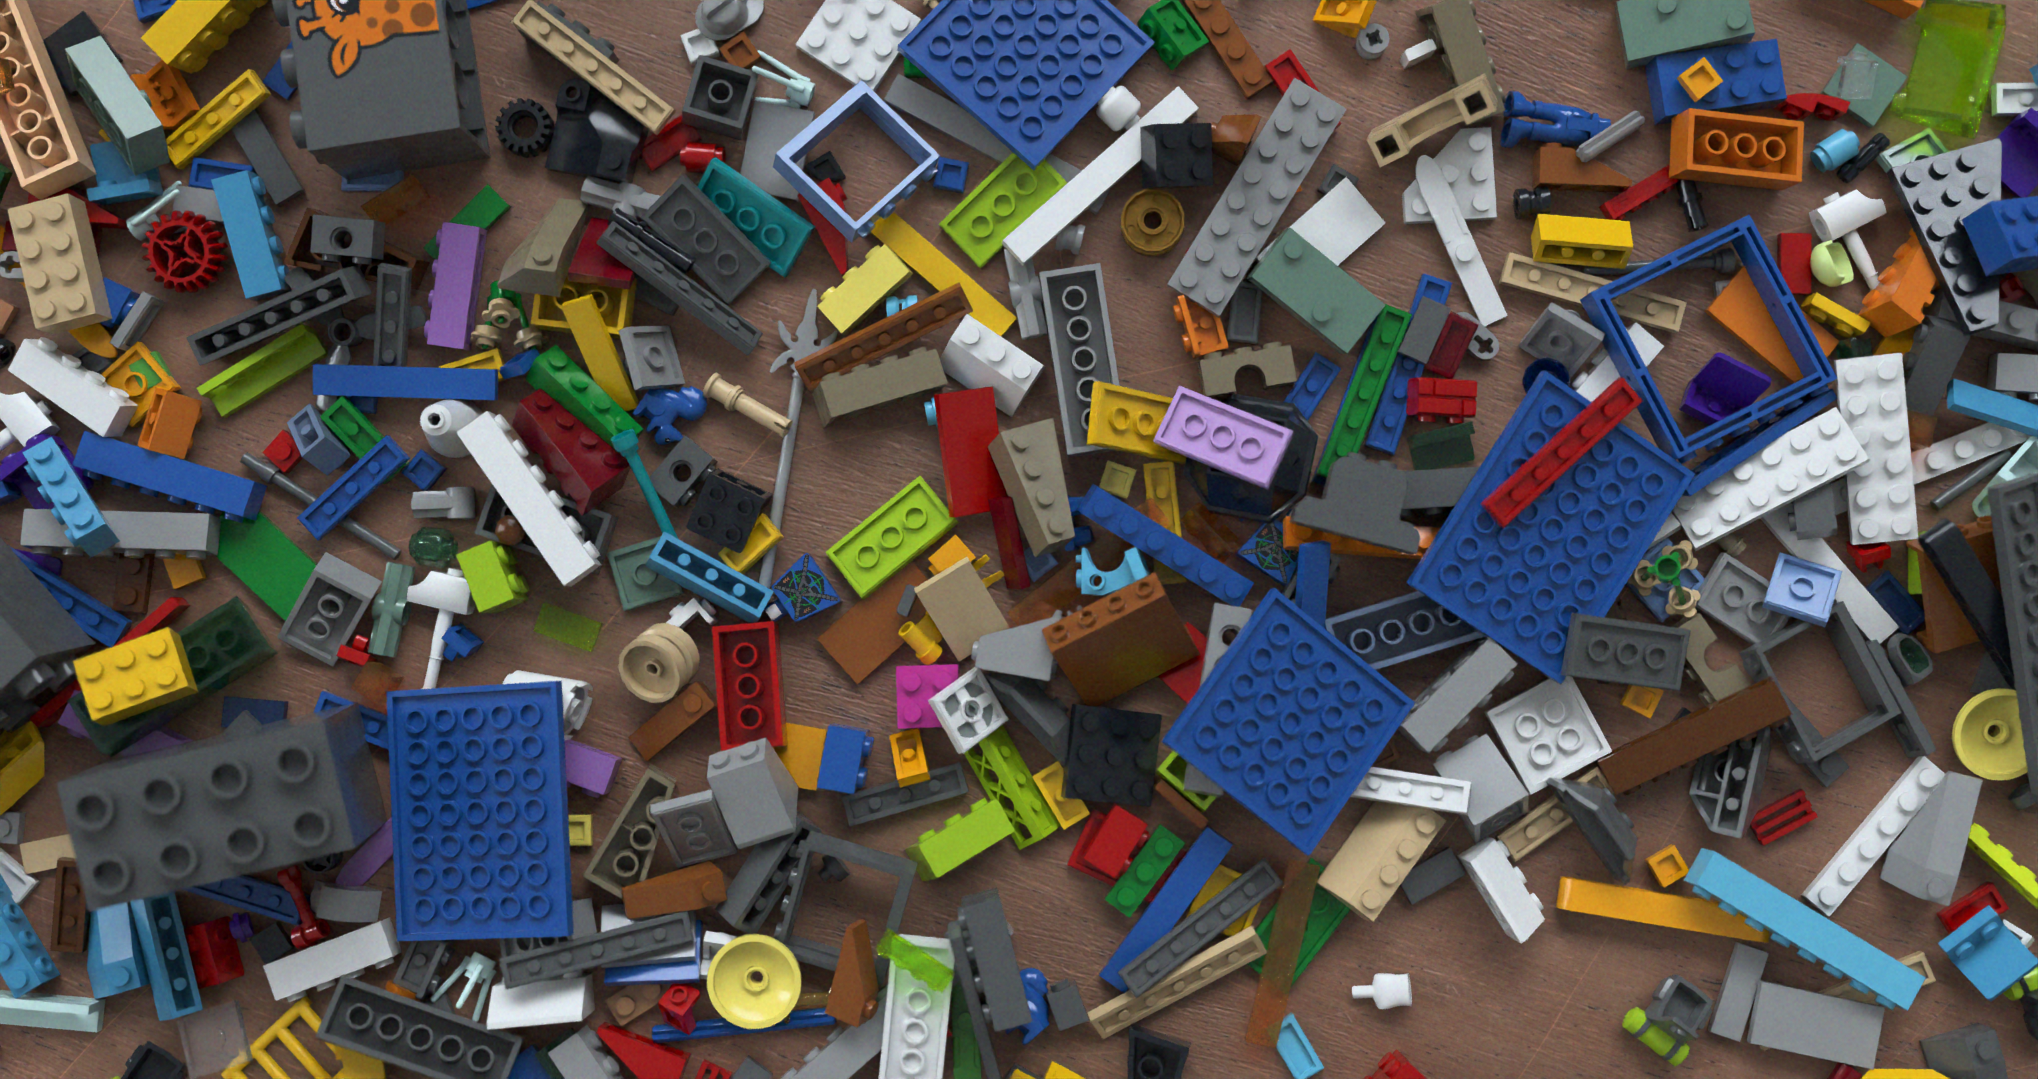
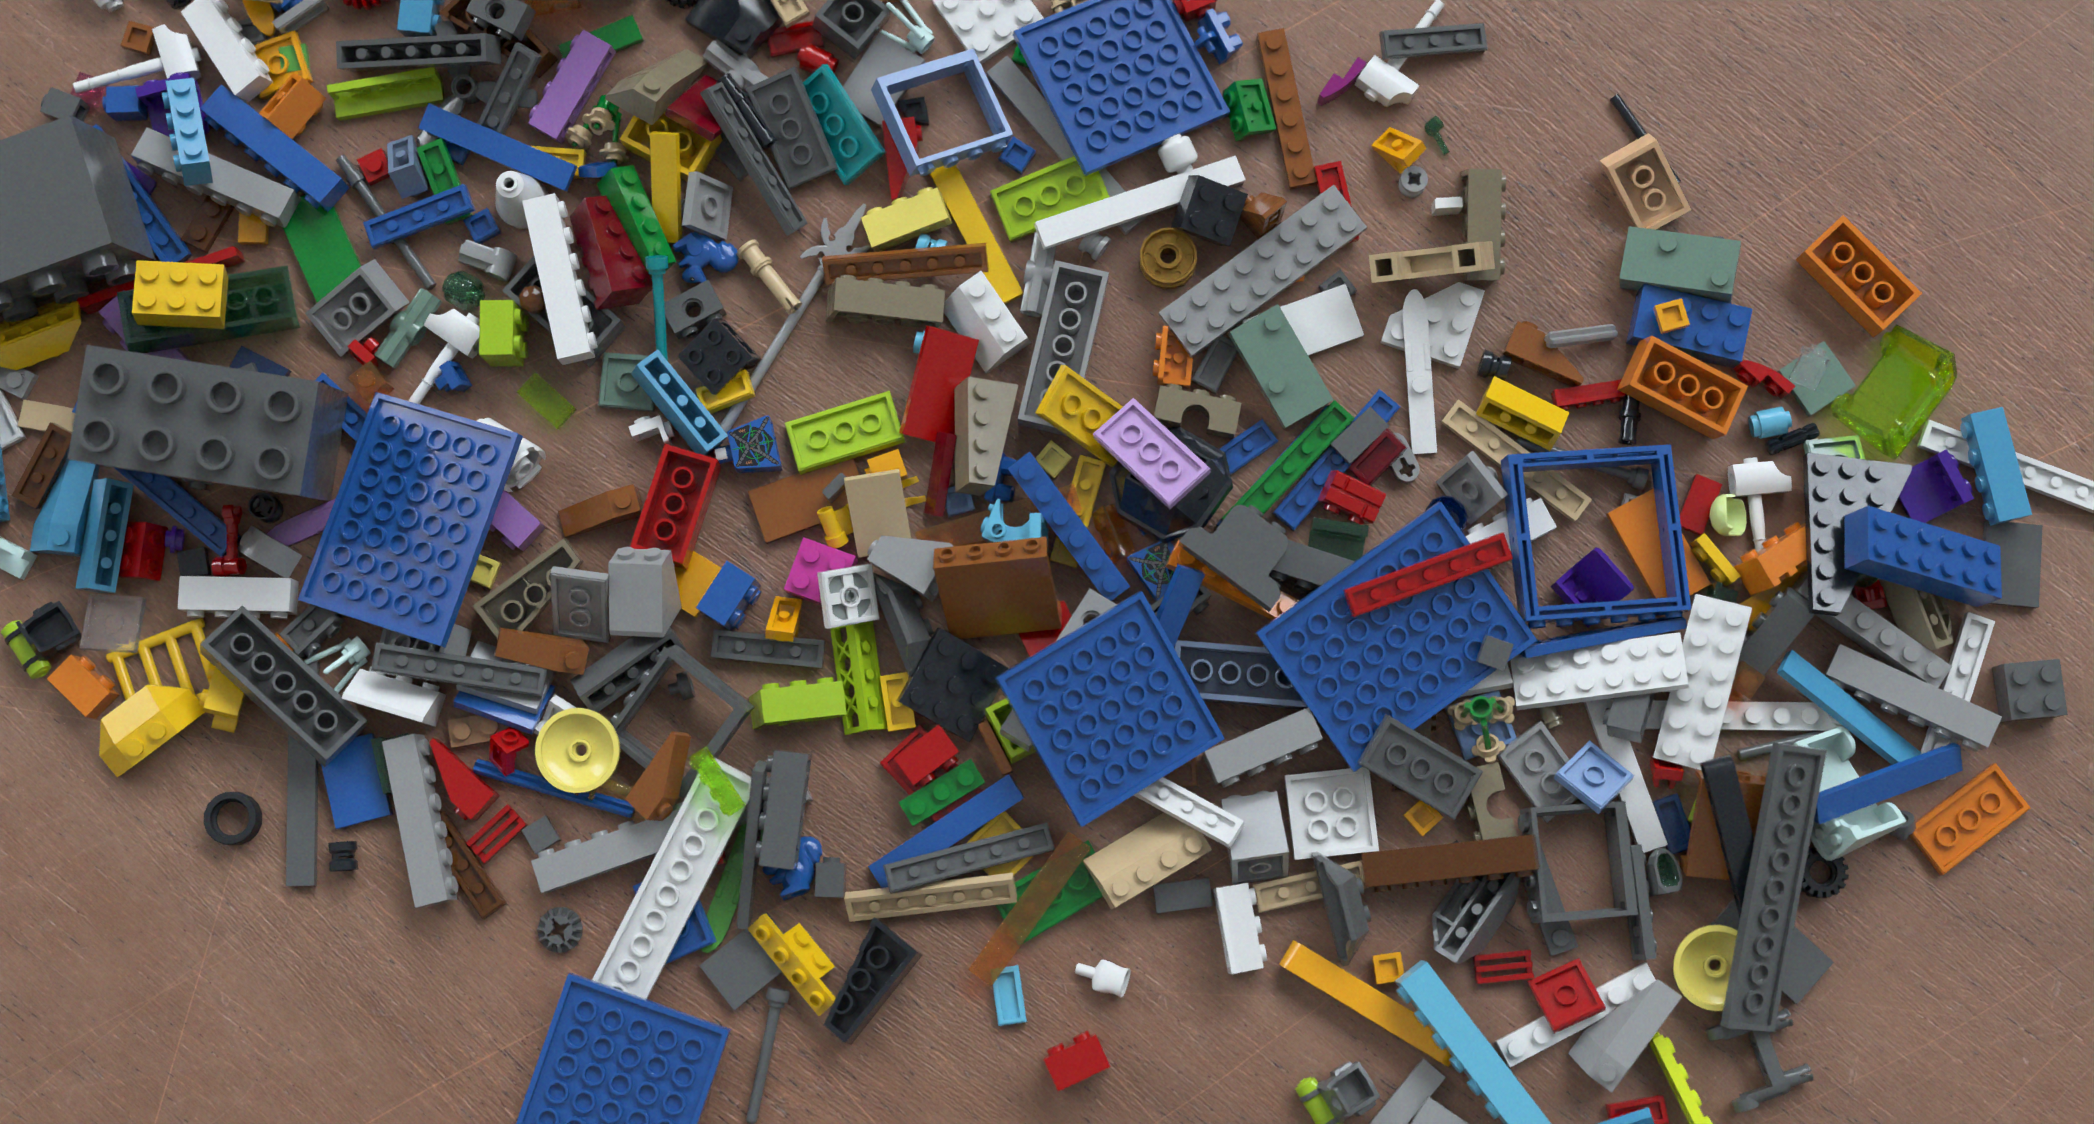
camera: 20 degrees right, 5 degrees down
(659, 662) = (609, 456): tan wheel -> none
(1570, 127) = (1551, 314): blue piece -> none
(1658, 505) = (1494, 652): none -> dark grey tile
(1858, 822) = (1566, 995): none -> red tile

